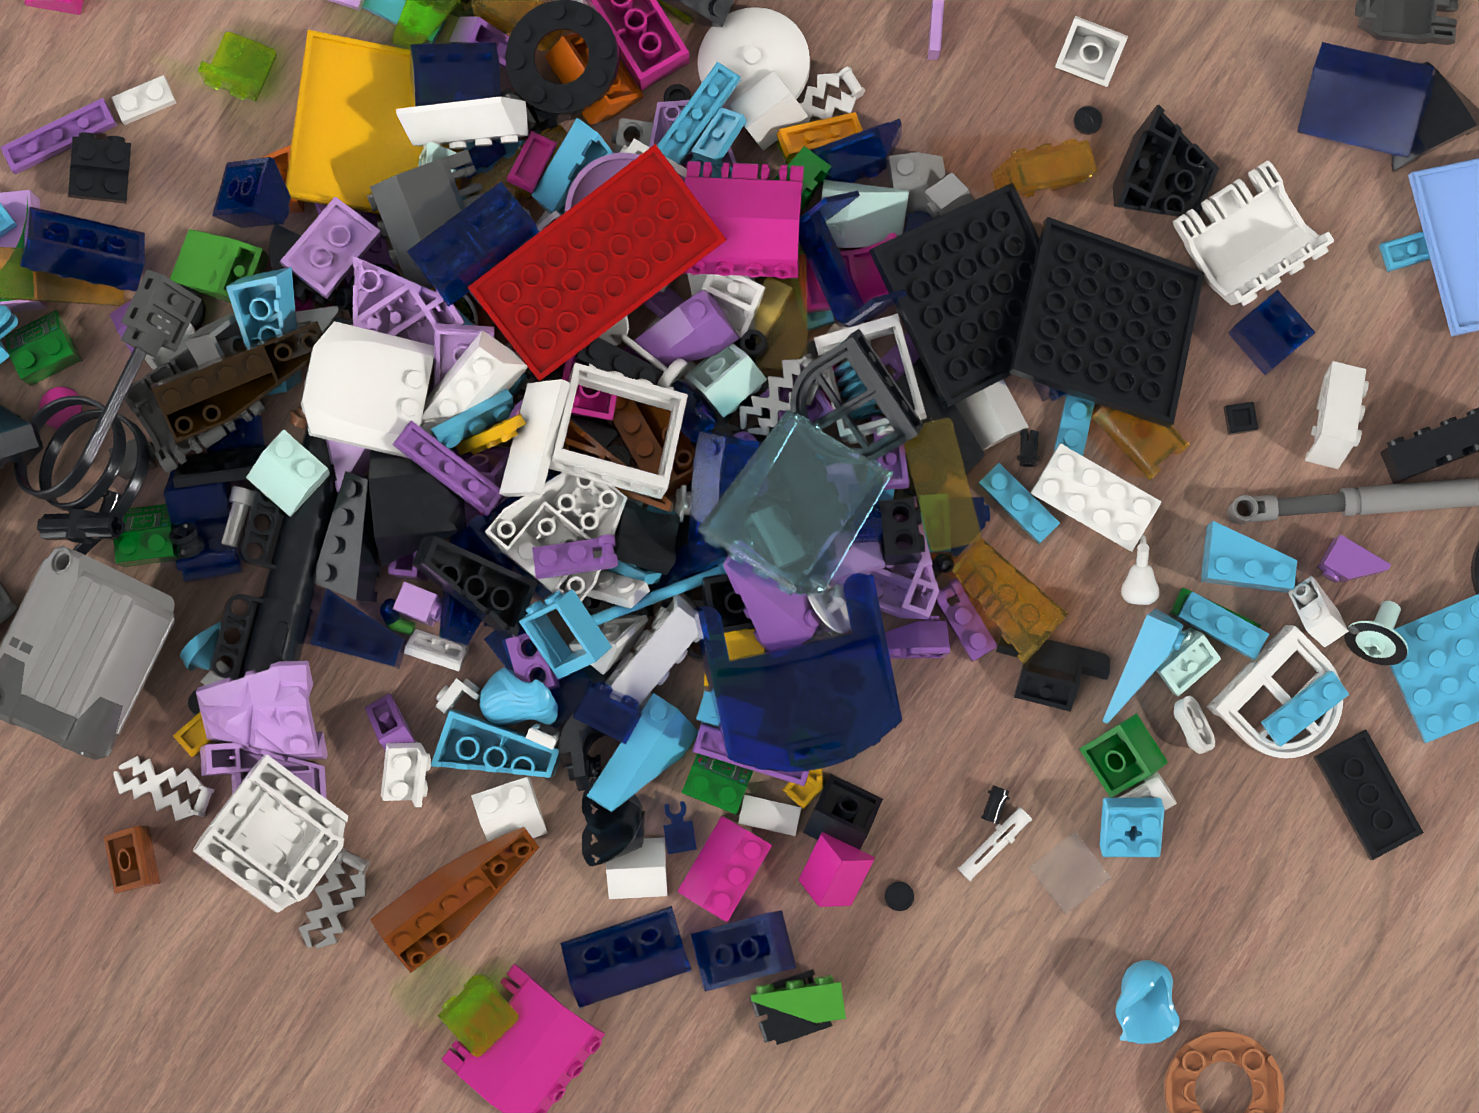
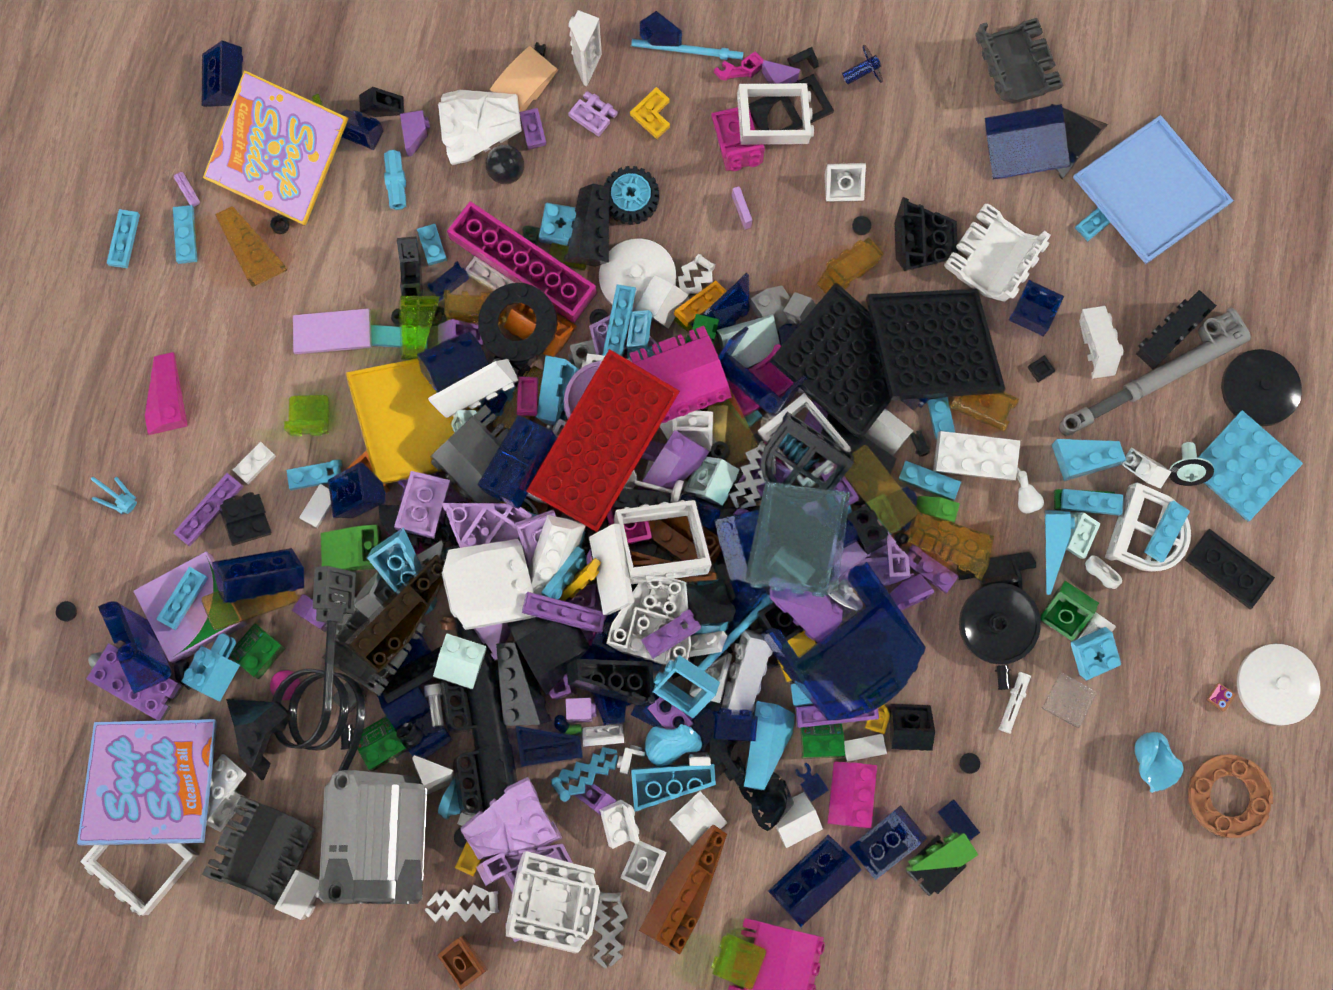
camera: 25 degrees left, 5 degrees down
(81, 526) = (337, 755): black piece -> none
(191, 605) = (432, 775): none -> white slope
(199, 193) = (317, 507): none -> white tile
(211, 147) = (312, 475): none -> medium azure plate
(402, 686) = (592, 768): none -> medium azure piece
(414, 840) = (643, 865): none -> white slope
(683, 502) = (721, 570): white plate -> none
(834, 872) = (923, 765): dark pink slope -> none
(848, 964) = (958, 820): none -> clear blue tile
(1010, 544) = (938, 507): none -> bright green slope
(1022, 732) = (999, 623): none -> black dish
(1274, 957) = (1220, 697): none -> tile
(1349, 561) = (1149, 428): medium lavender slope -> none
(1359, 975) = (1278, 684): none -> white dish

